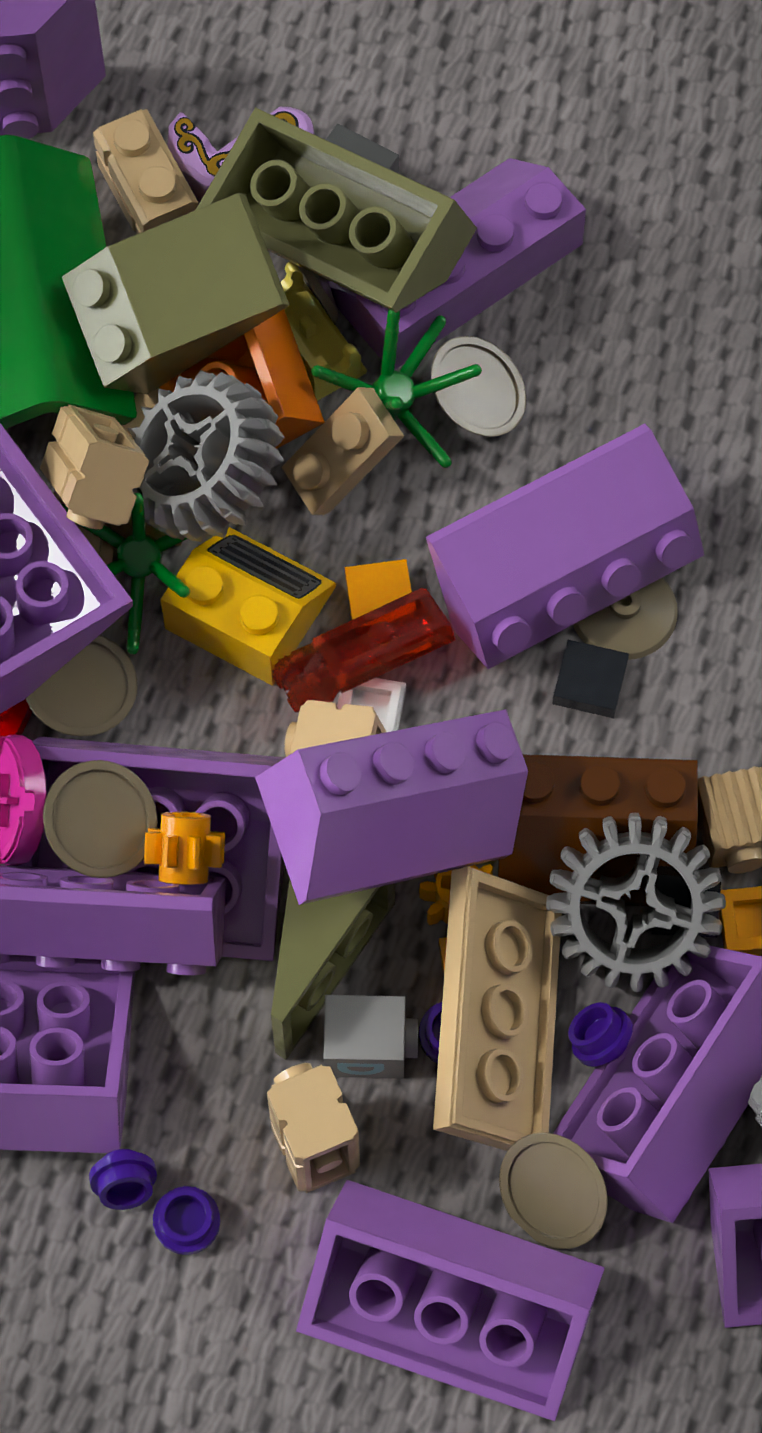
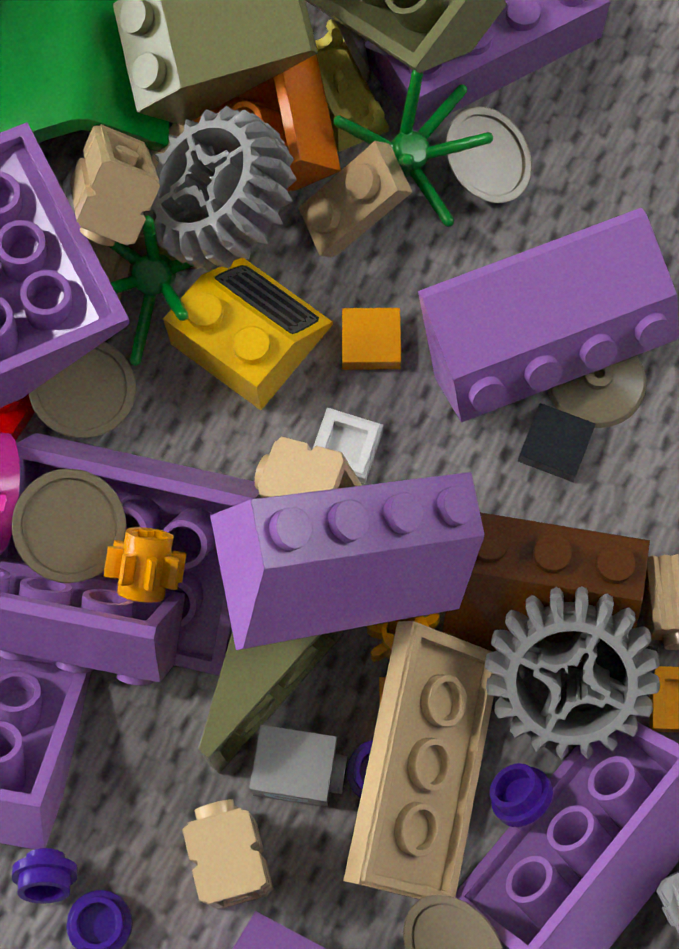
camera: 10 degrees right, 5 degrees up
(363, 649) = (346, 390): clear red hinge -> none

